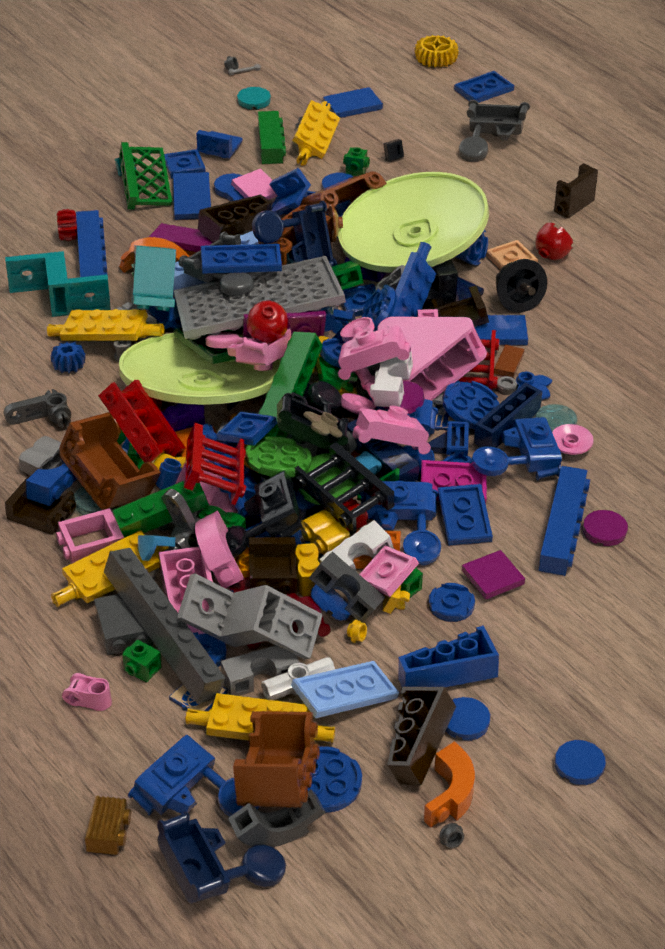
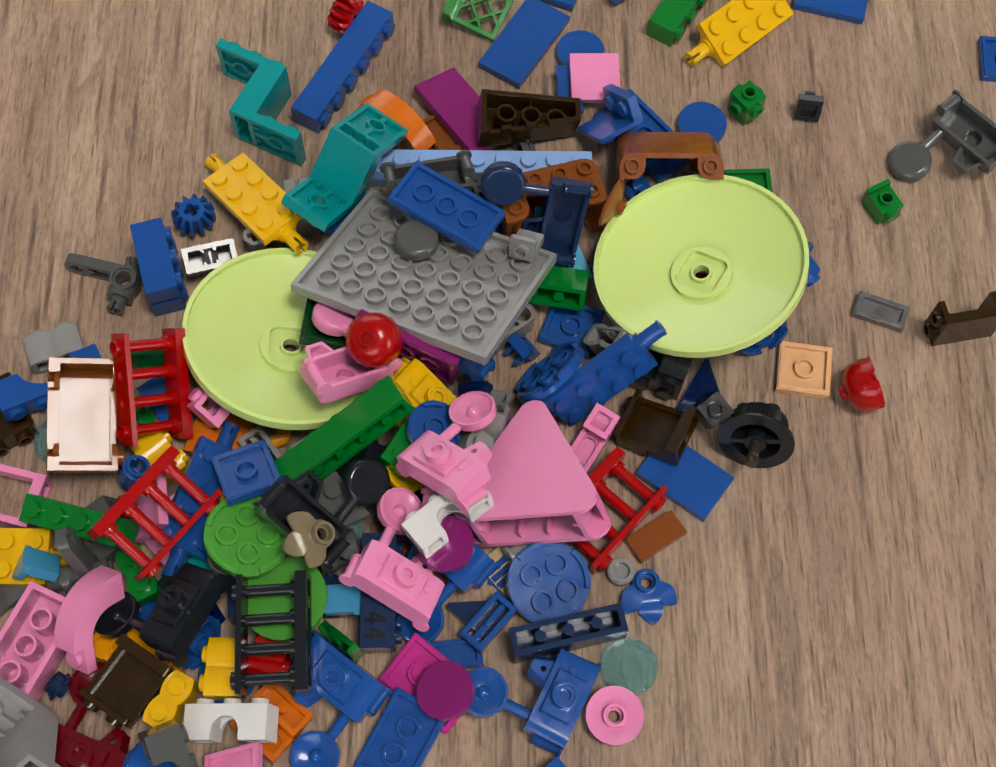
camera: 35 degrees right, 25 degrees up
(75, 380) = (159, 266): none -> blue piece
(102, 367) = (204, 258): none -> brick
(183, 419) = (213, 415): none -> bright pink brick
(305, 256) = (525, 245): none -> light grey bracket
(469, 467) = (445, 690): none -> magenta tile
(478, 170) = (882, 202): none -> green brick
(486, 286) = (712, 409): none -> black brick
(526, 216) = (880, 311): none -> flat silver tile

